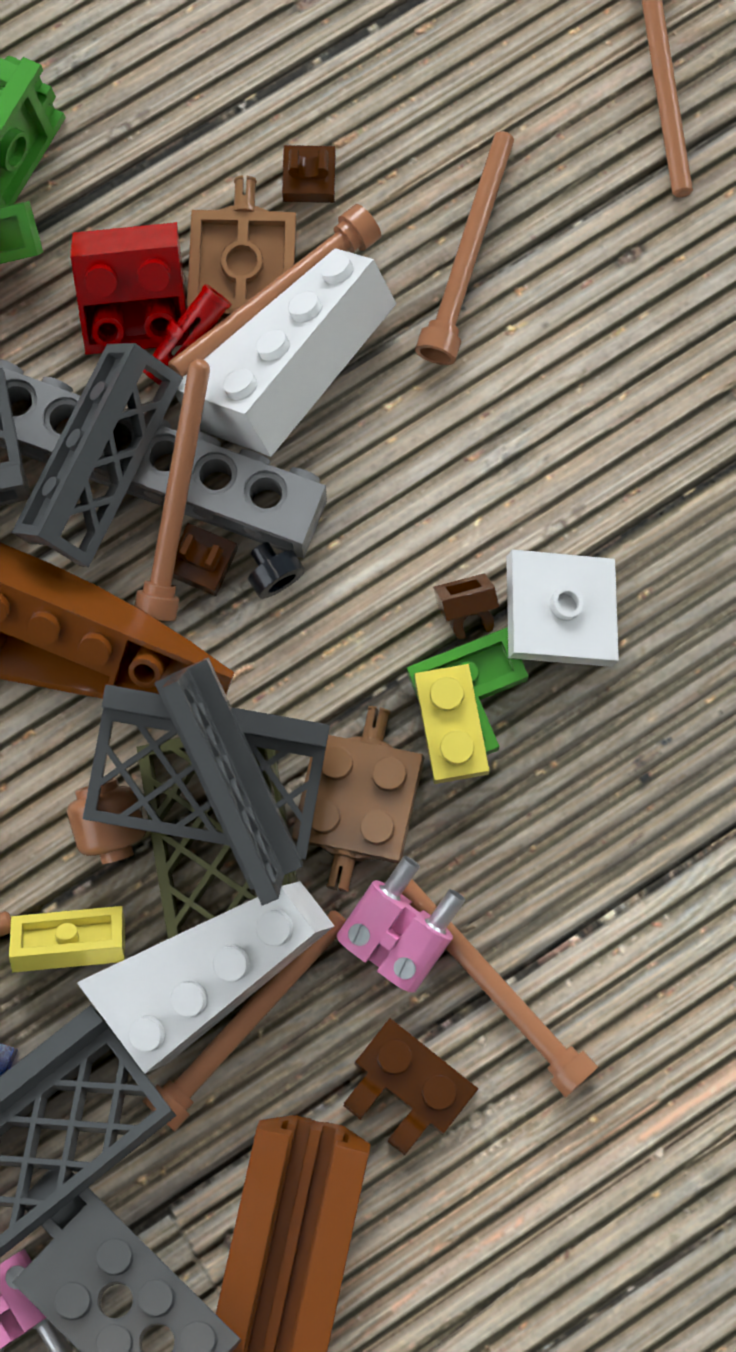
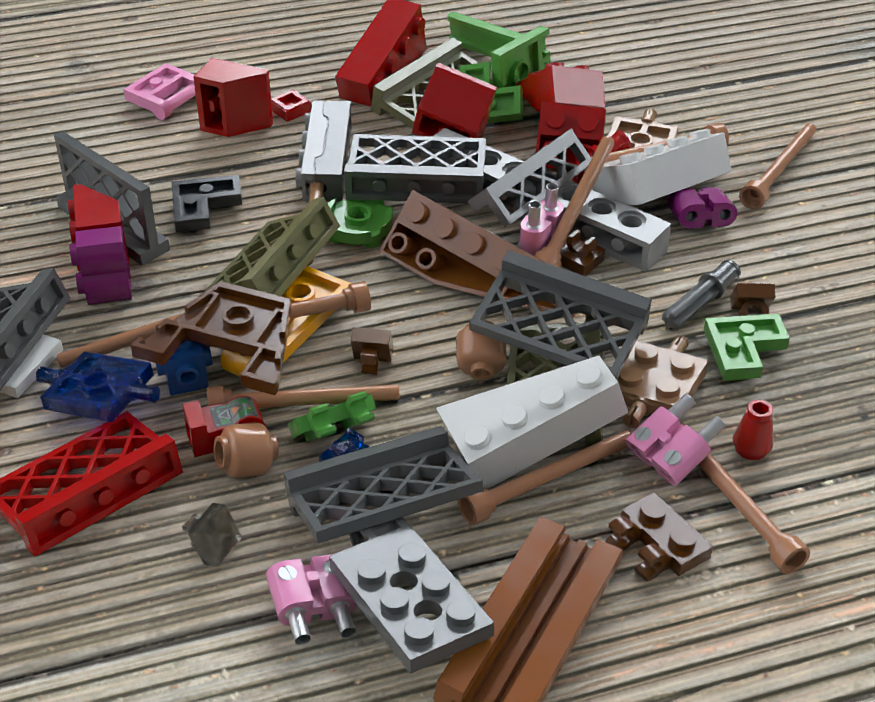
camera: 15 degrees right, 35 degrees down
(67, 939) = (418, 401): light yellow plate -> none
(93, 180) = (564, 86): none -> slope
(134, 540) = (541, 221): none -> bright pink piece
(230, 777) = (574, 290): dark grey fence -> none
(274, 570) = (627, 264): black tile -> none
(309, 174) = (689, 119): reddish brown tile -> none
(366, 405) = (708, 205): none -> magenta piece
(392, 603) = (710, 287): none -> dark grey axle
(451, 724) = (732, 345): light yellow plate -> none
(500, 893) = (755, 431): none -> red cone
(562, 608) = (818, 314): white plate -> none

